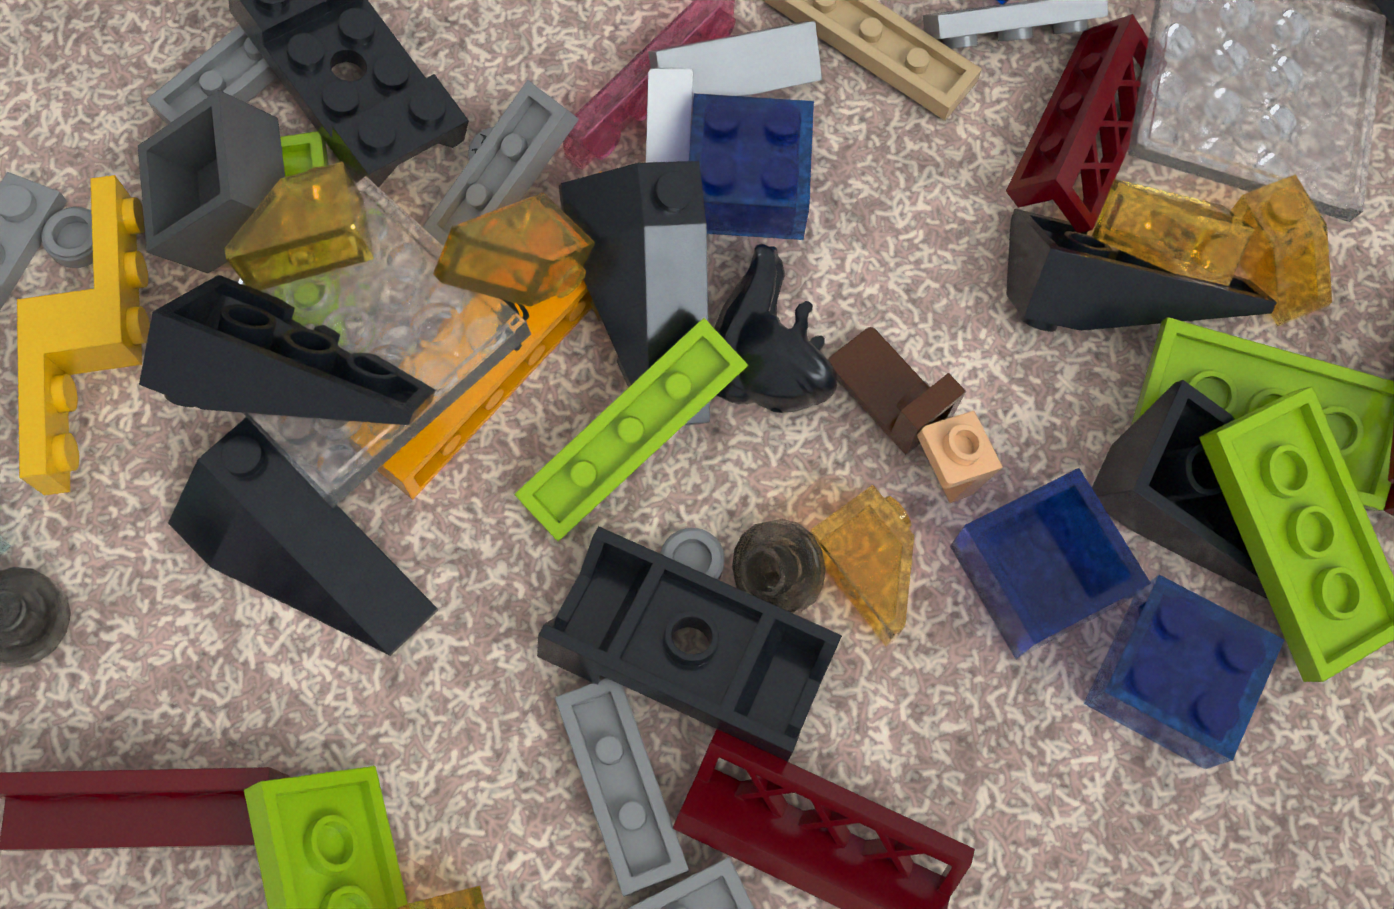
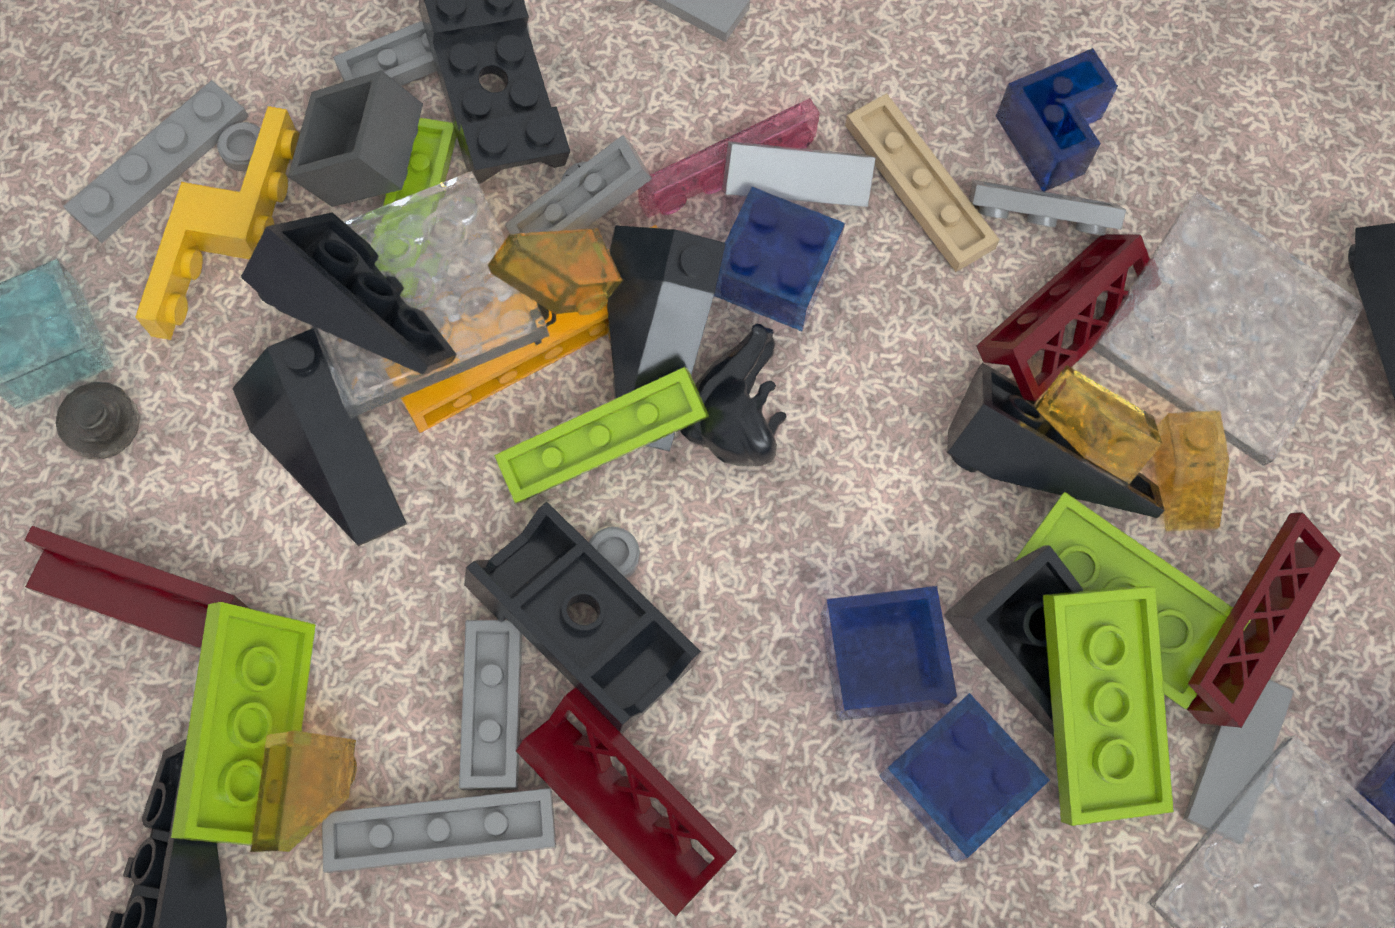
camera: 20 degrees right, 0 degrees up
(303, 230) = (406, 198): clear yellow slope -> none
(669, 114) = (726, 197): white sticker -> none
(780, 564) = (676, 581): clear smoke plate -> none
(870, 558) = (750, 597): clear yellow slope -> none
(892, 389) = (823, 474): reddish brown bracket -> none
(959, 454) = (849, 543): light nougat bracket -> none

